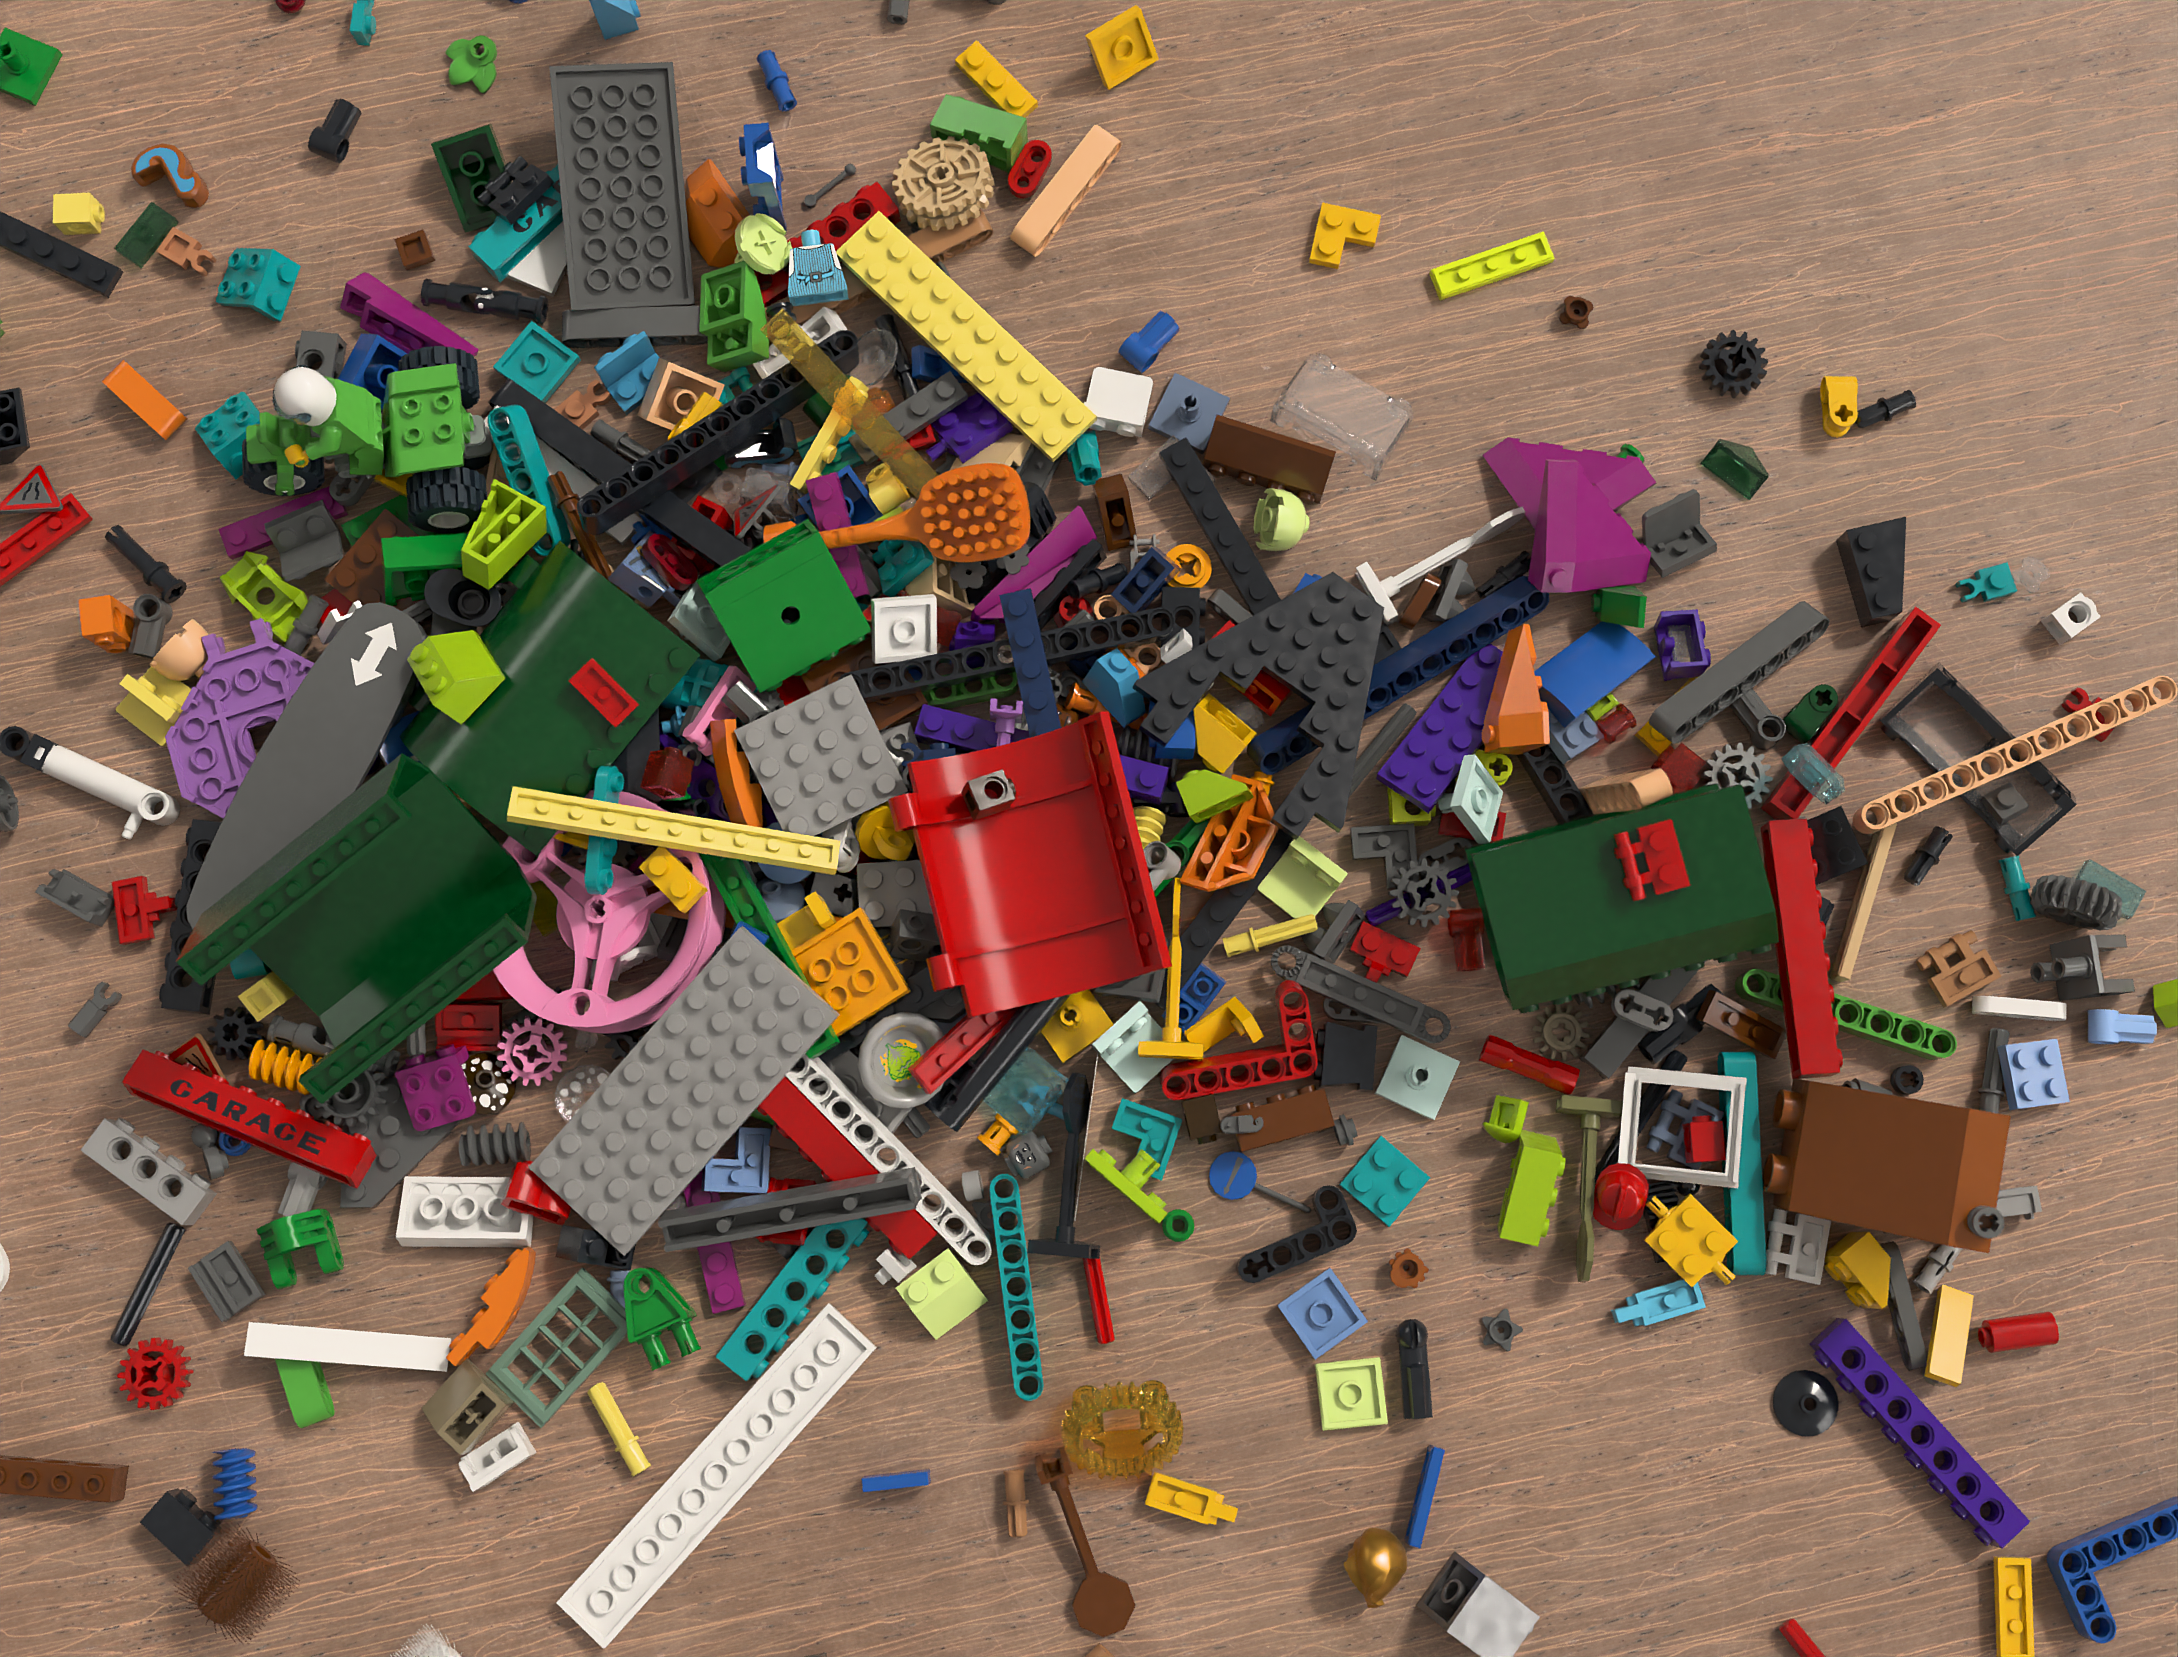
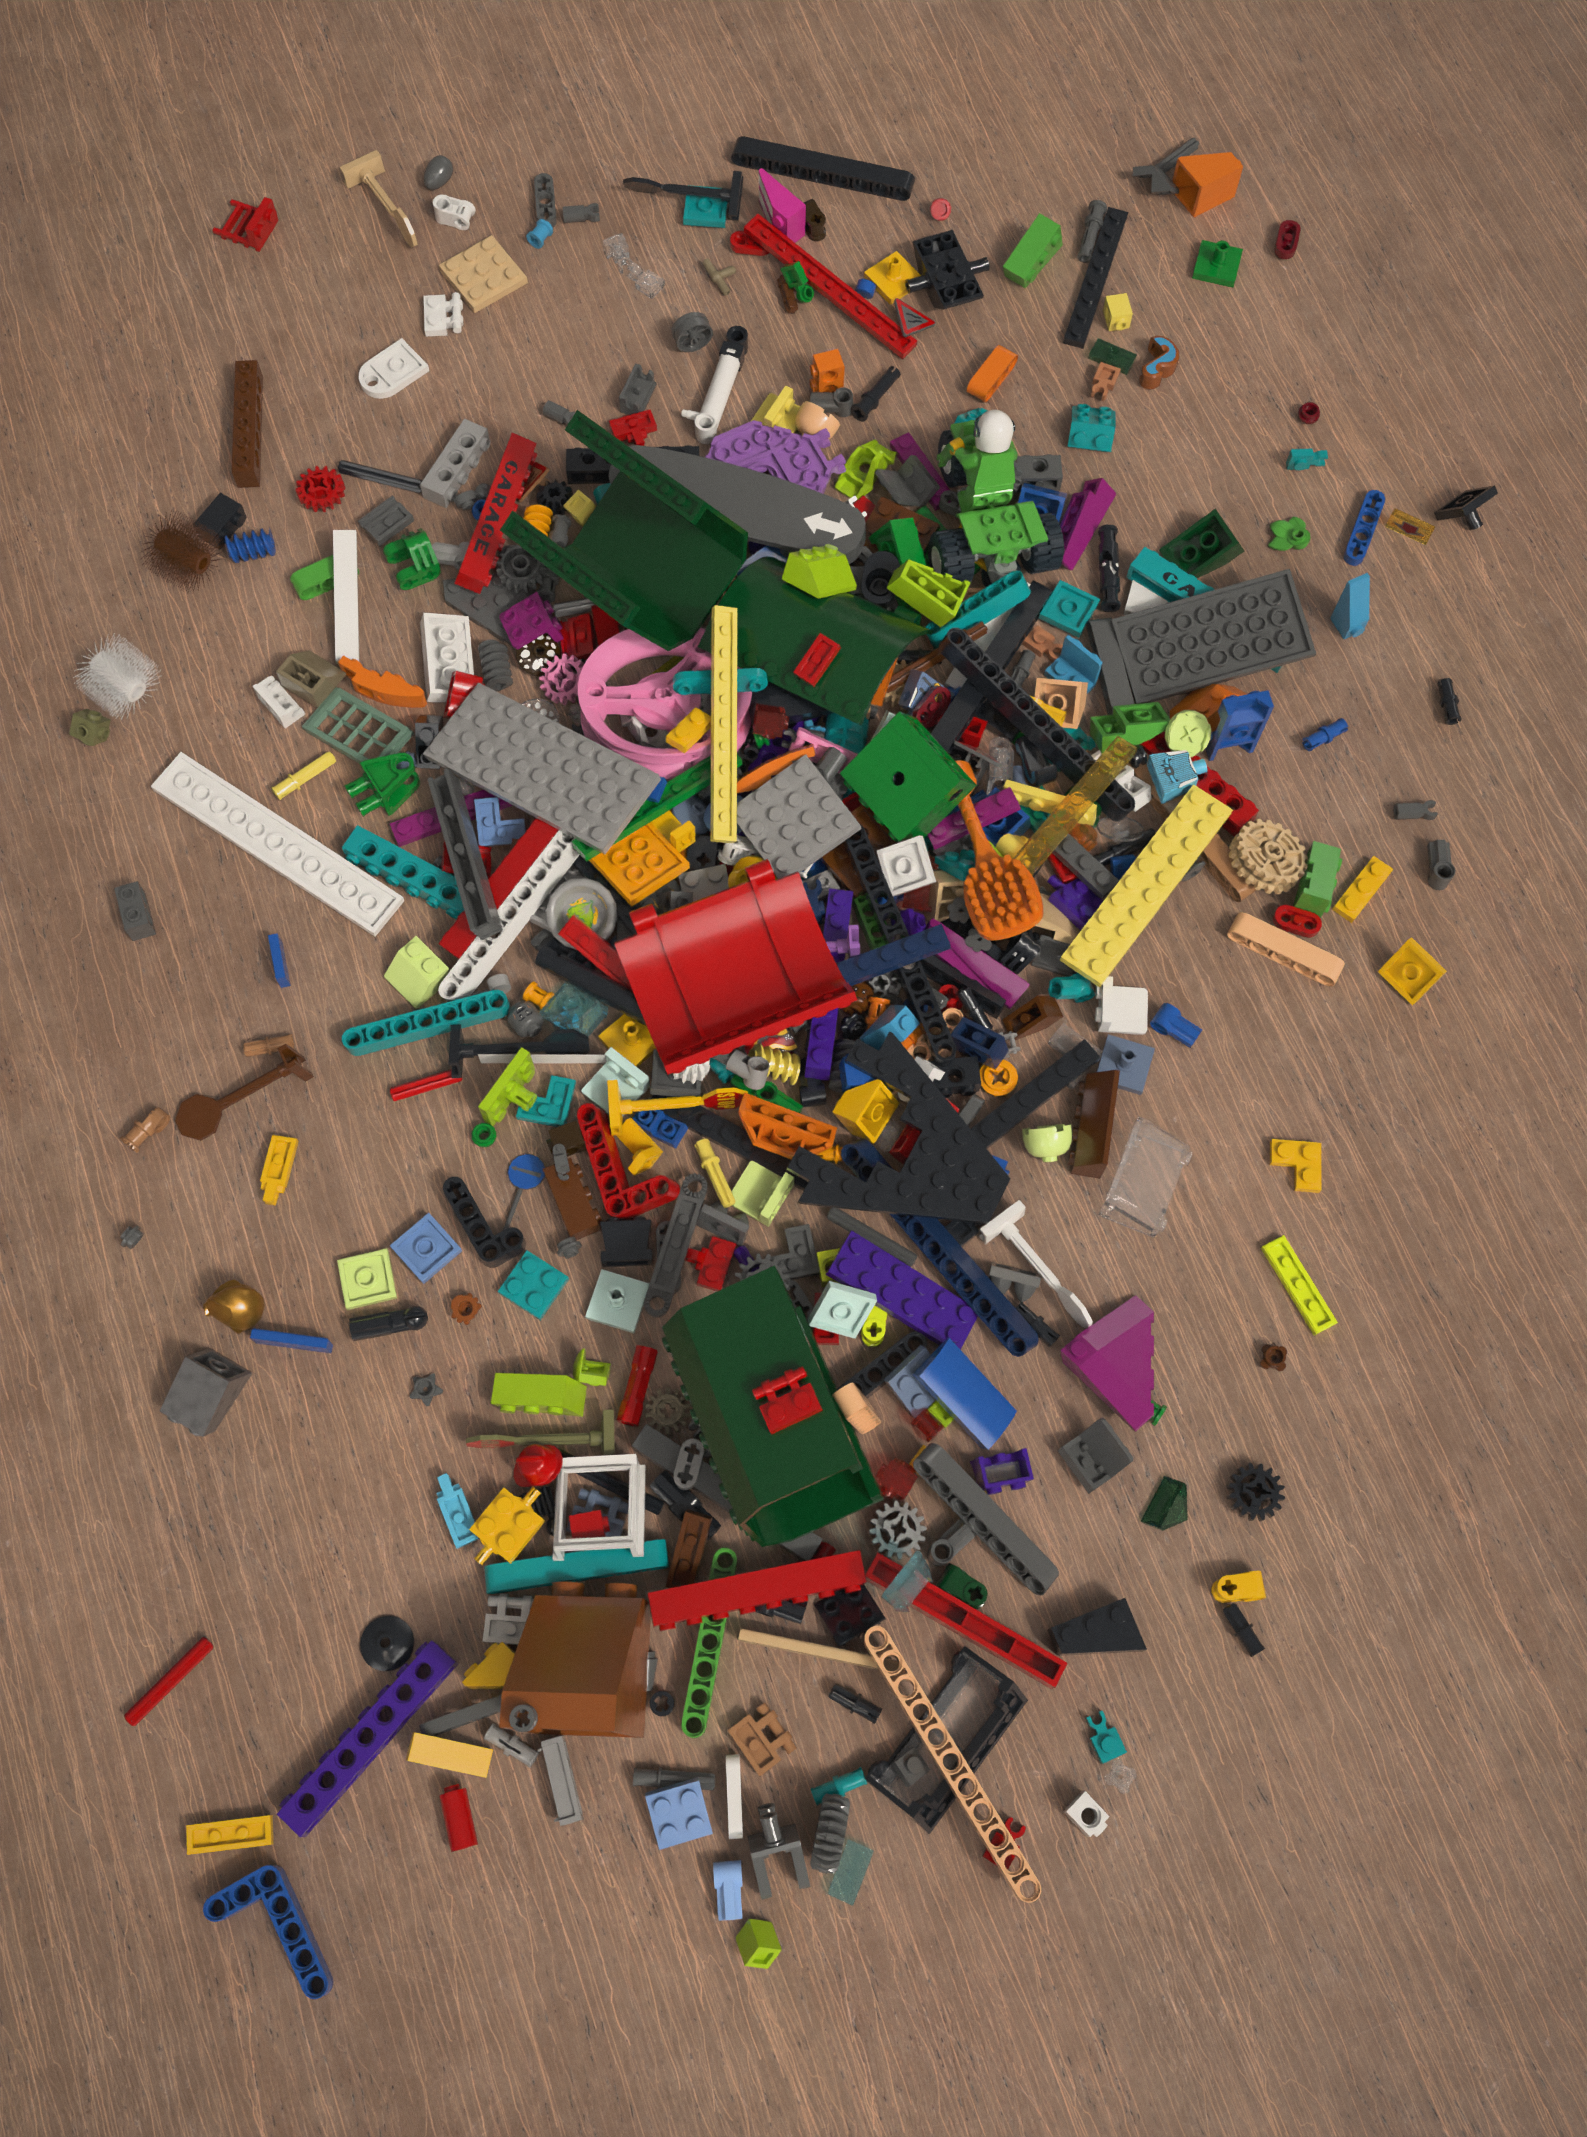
camera: 80 degrees right, 10 degrees down
(306, 624) = (846, 492): dark grey pin -> none
(333, 137) = (1209, 454): black piece -> none
(414, 250) = (1137, 519): reddish brown plate -> none
(520, 194) = (1194, 568): black plate -> none
(811, 200) = (1236, 773): dark grey hinge -> none
(893, 1266) = (433, 936): white tile -> none
(979, 803) = (787, 922): dark brown brick -> none
(1122, 1449) = (311, 1117): clear yellow piece -> none
(1210, 794) = (814, 1105): lime slope -> none
(1419, 601) = (1002, 1255): reddish brown beam -> none
(1515, 715) = (912, 1328): orange wedge -> none
(1580, 537) = (1073, 1370): magenta slope -> none
(1620, 605) = (1026, 1414): green slope -> none

